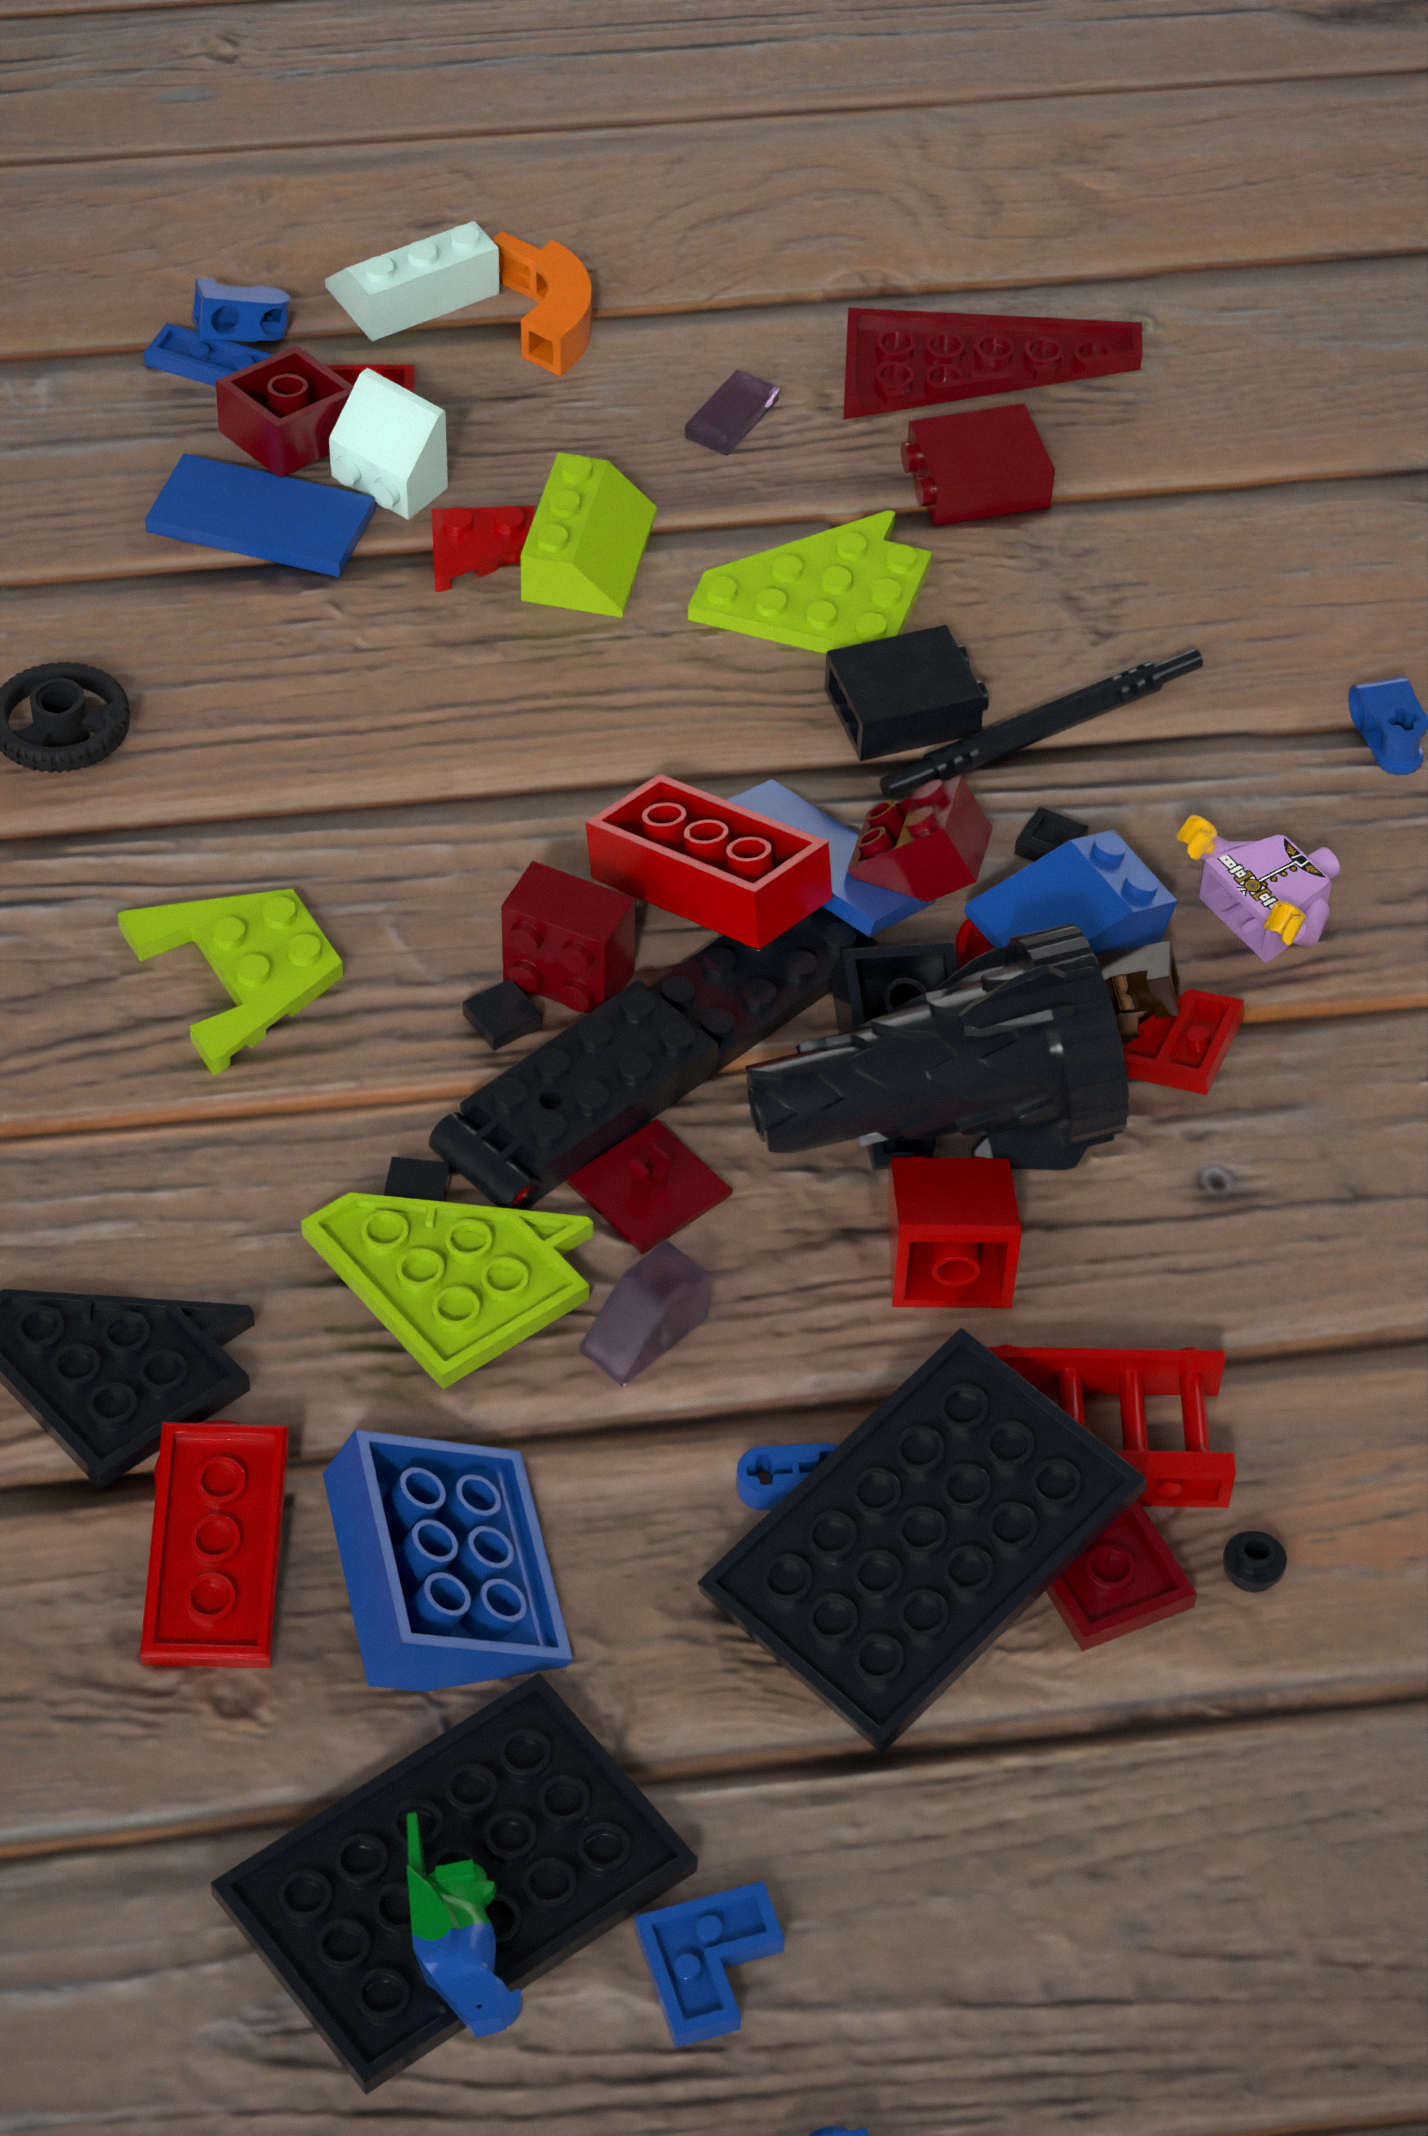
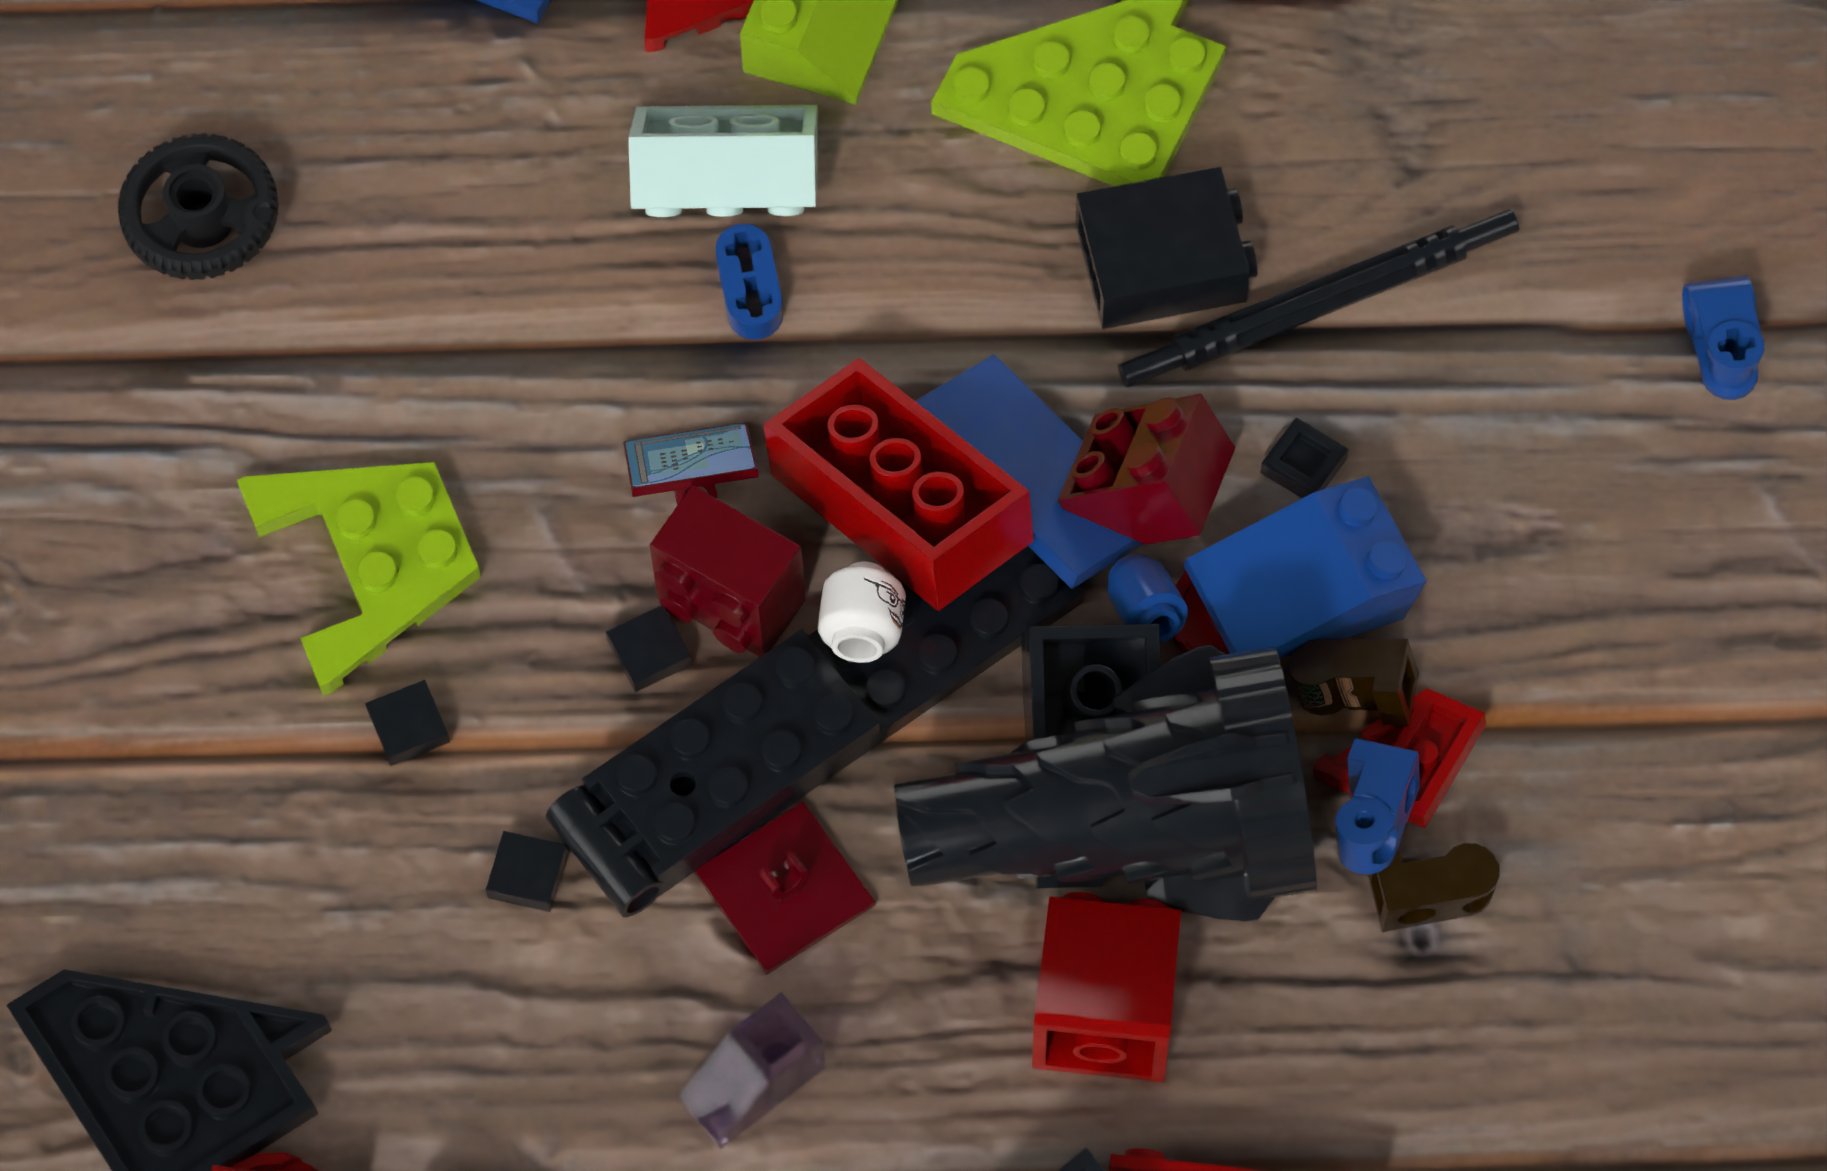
camera: 10 degrees right, 15 degrees up
(293, 1085) = (407, 722): none -> black tile
(450, 1275) = (552, 989): lime wing -> none
(515, 866) = (690, 459): none -> piece
(518, 656) = (723, 159): none -> light aqua slope
(560, 741) = (761, 279): none -> blue beam
(693, 949) = (861, 612): none -> white head
(935, 926) = (1146, 595): none -> blue brick
(1165, 1064) = (1384, 792): none -> blue leg
(1219, 1136) = (1435, 887): none -> dark brown leg
(1263, 887) = (1537, 557): lavender torso -> none

